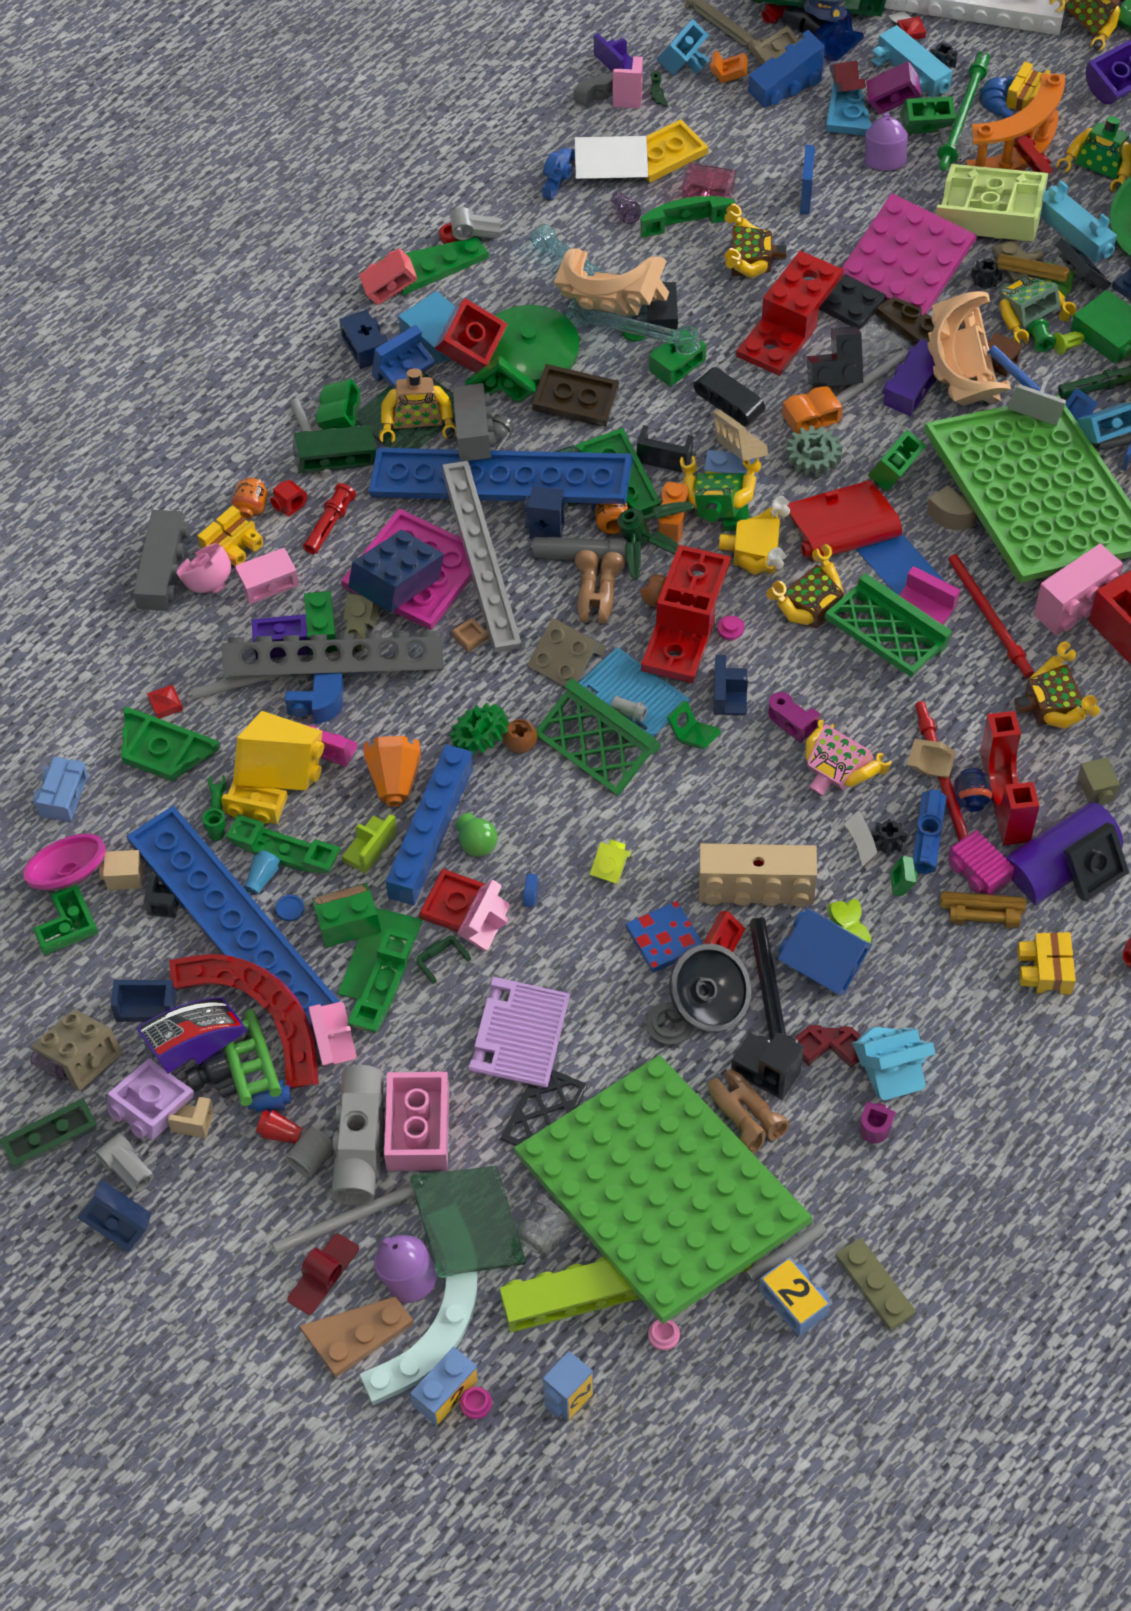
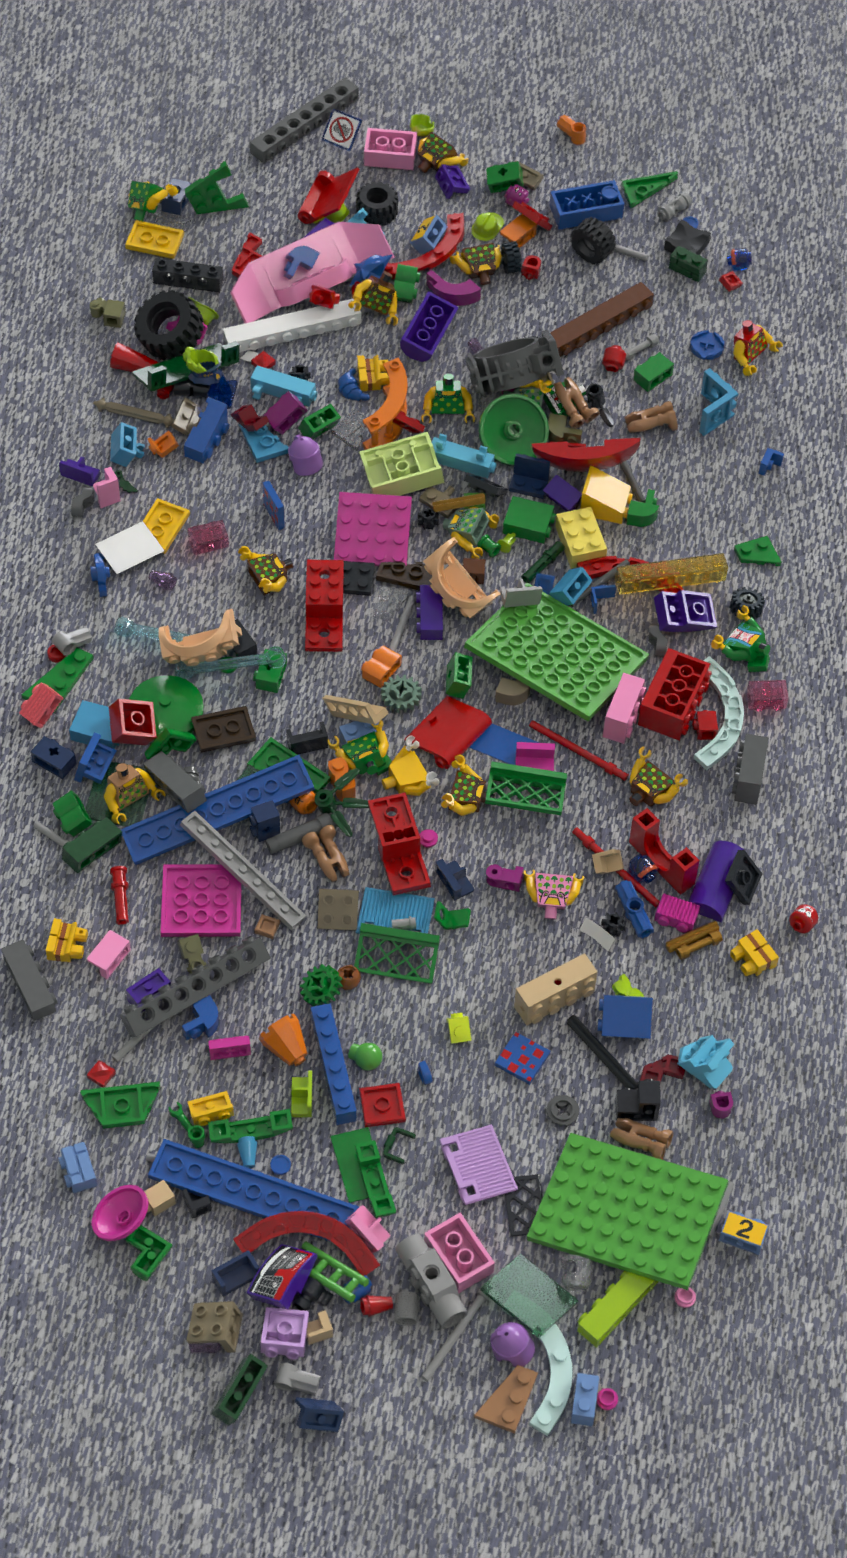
camera: 35 degrees left, 0 degrees up
(207, 570) = (67, 970): bright pink cylinder -> none
(250, 497) = (57, 906): orange head -> none
(277, 754) = (210, 1068): yellow slope -> none
(288, 497) = (83, 893): red plate -> none
(320, 616) = (167, 962): green brick -> none
(321, 1272) = (463, 1376): dark red piece -> none
(346, 915) = (321, 1148): green slope -> none
(395, 570) = (200, 908): dark blue brick -> none
(485, 916) = (408, 1103): bright pink panel -> none
(567, 1386) = (657, 1357): medium blue brick -> none
(652, 591) = (367, 837): dark orange piece -> none
(682, 211) = (223, 552): green slope -> none
(724, 983) = (575, 1075): black dish -> none
(725, 931) = (559, 1044): red plate -> none
(729, 396) = (322, 681): black beam -> none
(841, 366) = (382, 624): black brick -> none
(875, 1284) = (781, 1199): olive plate -> none
(903, 876) = (637, 945): green plate -> none
(977, 72) = (328, 374): green bar -> none
(1012, 368) = (492, 579): blue bar -> none
(1098, 781) = (711, 825): olive brick -> none

